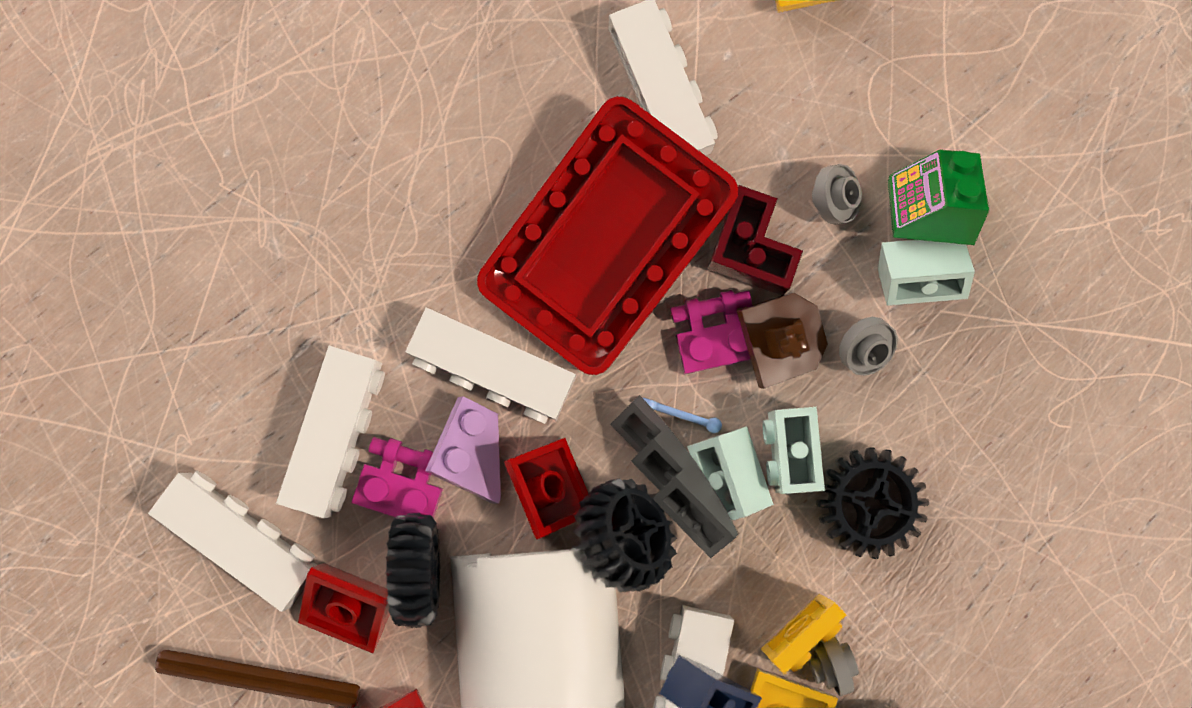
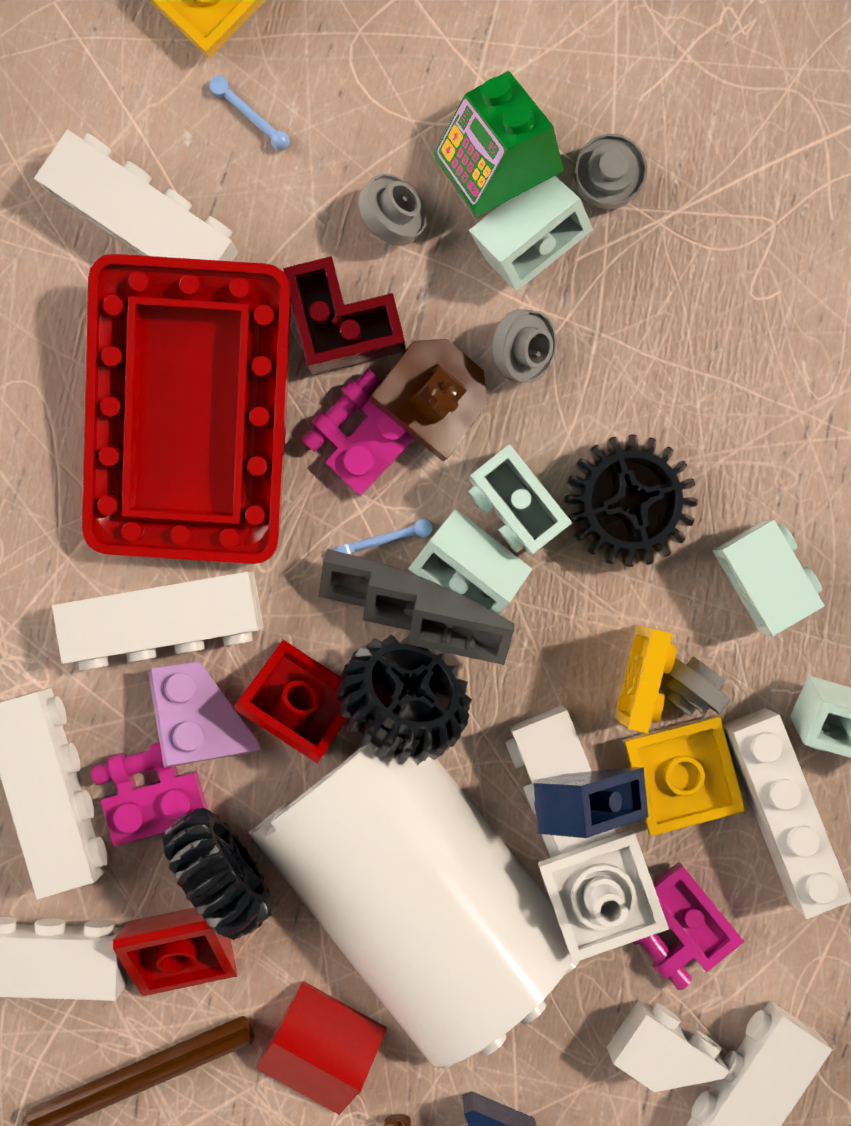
camera: 25 degrees left, 5 degrees up
(772, 37) = (220, 88): none -> light blue hinge
(937, 622) = (770, 577): none -> light aqua brick
(1004, 266) = (610, 171): none -> light grey plate

